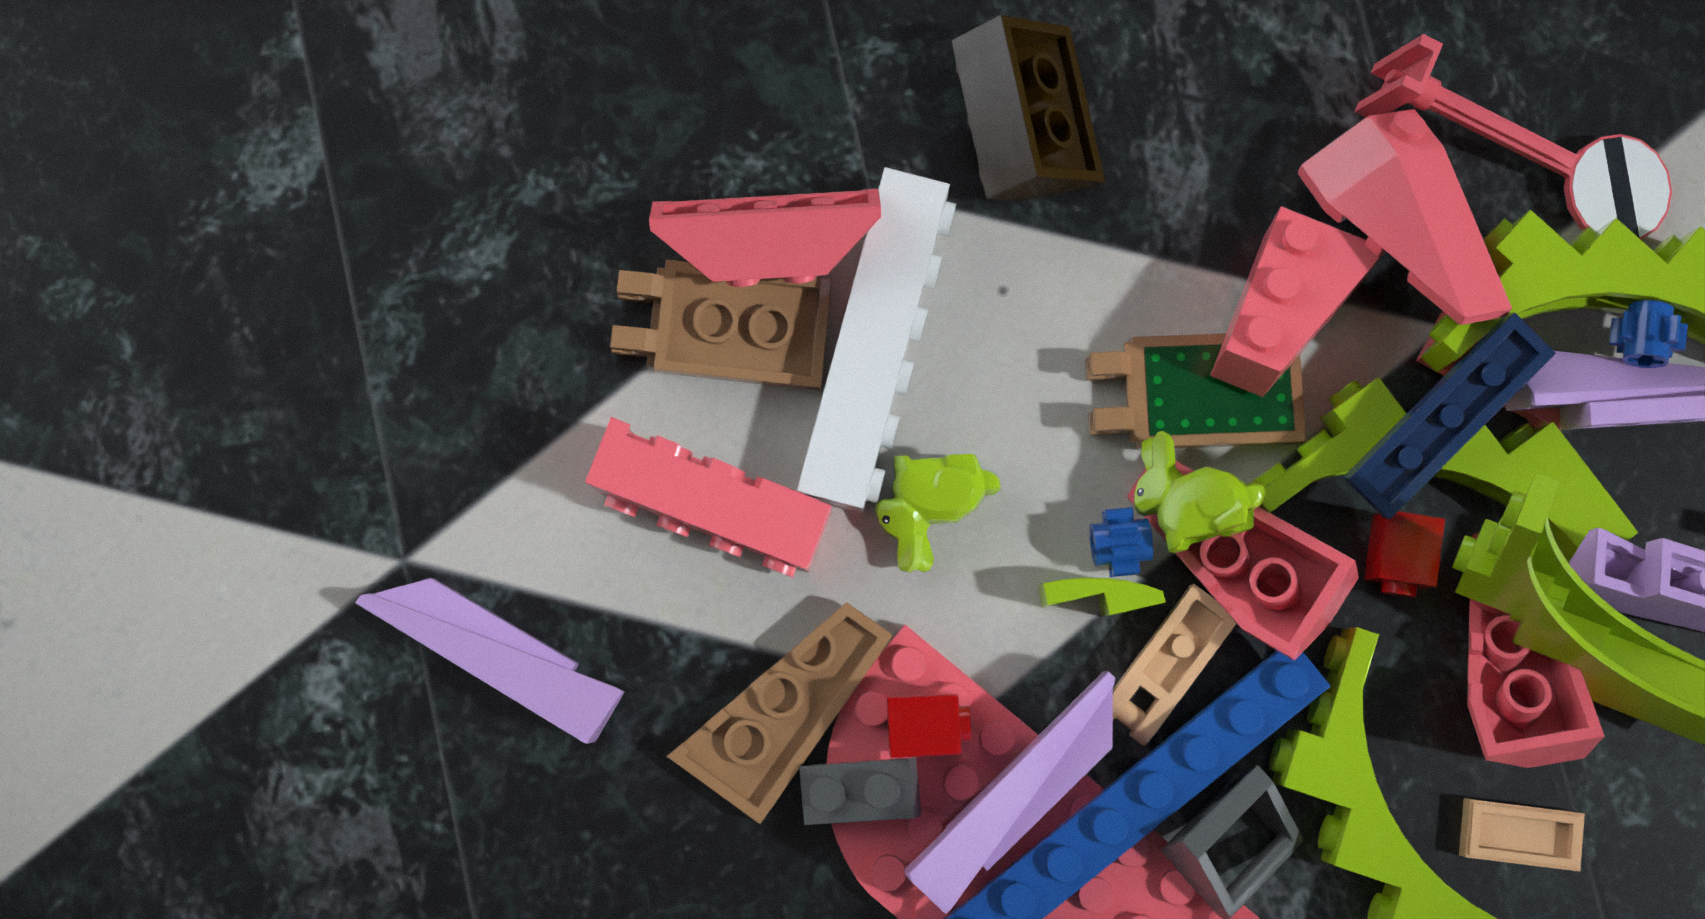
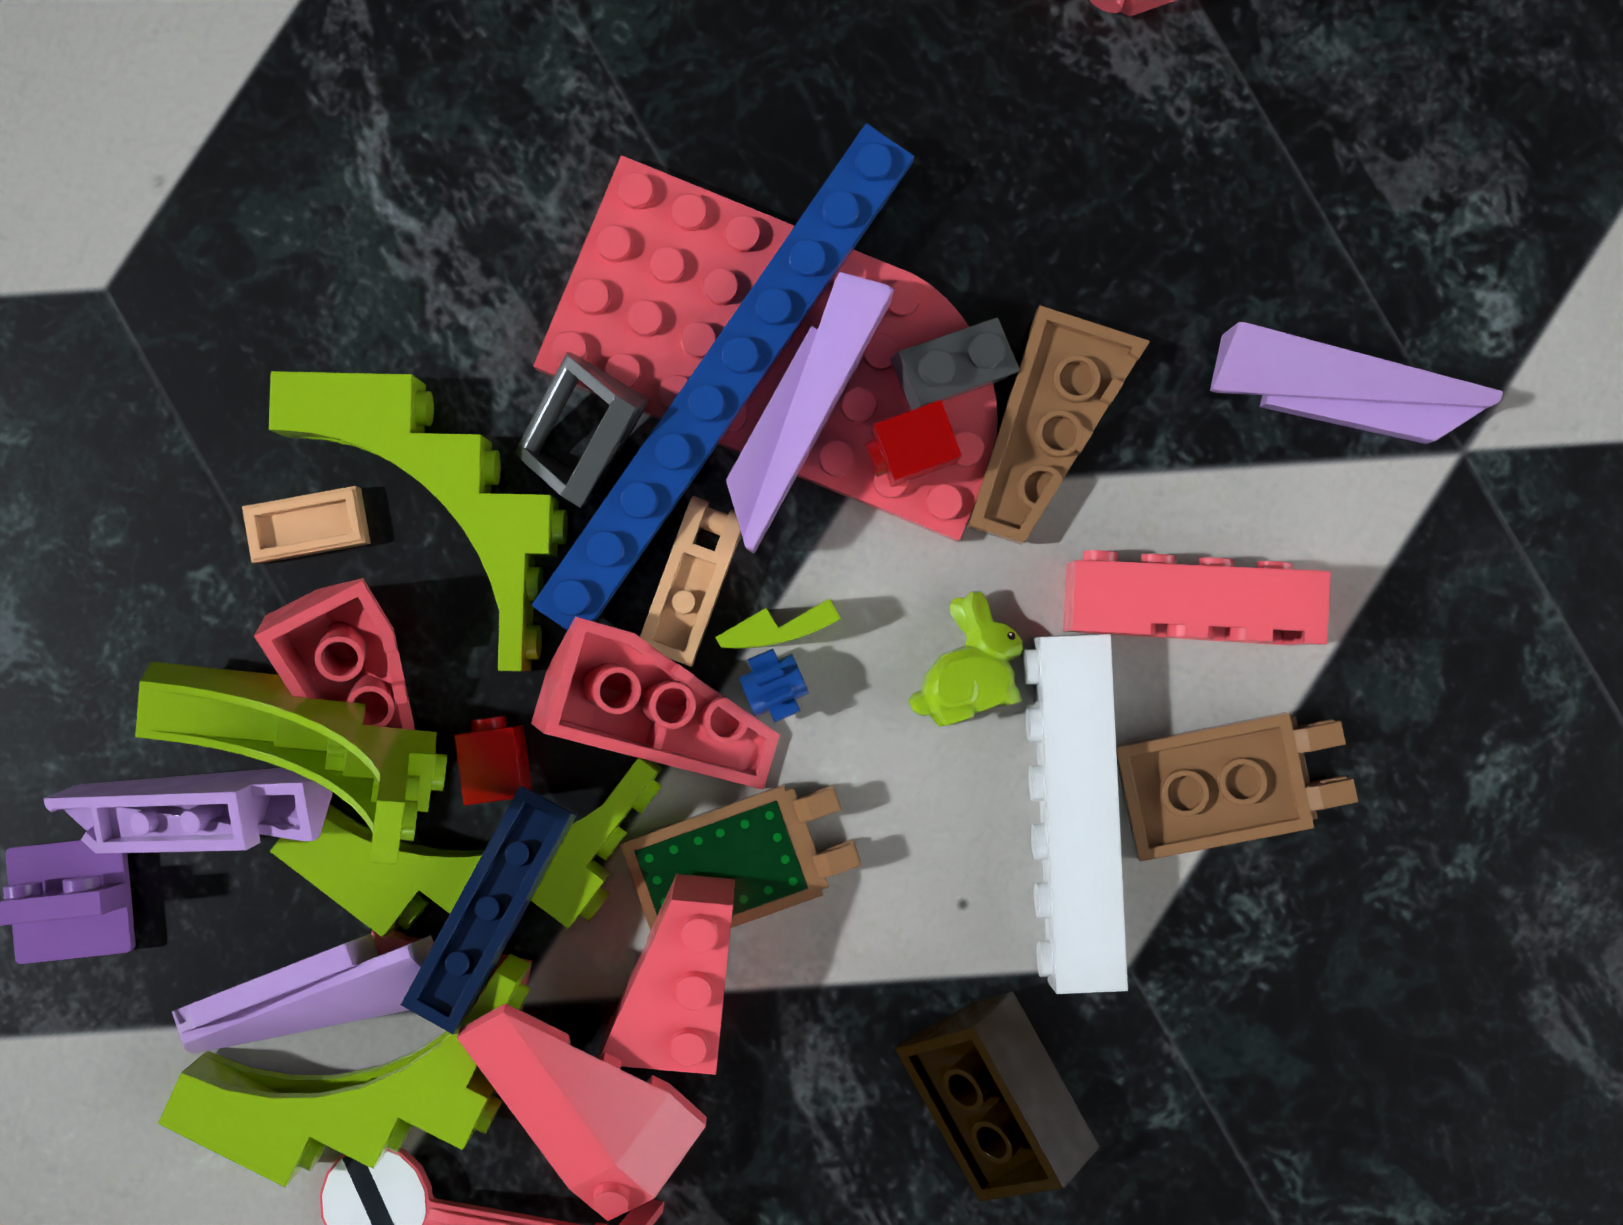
camera: 160 degrees right, 5 degrees up
(766, 235) = (1229, 880): coral wedge -> none
(1192, 504) = (713, 744): lime animal -> none
(1648, 334) = (309, 1057): blue gear -> none

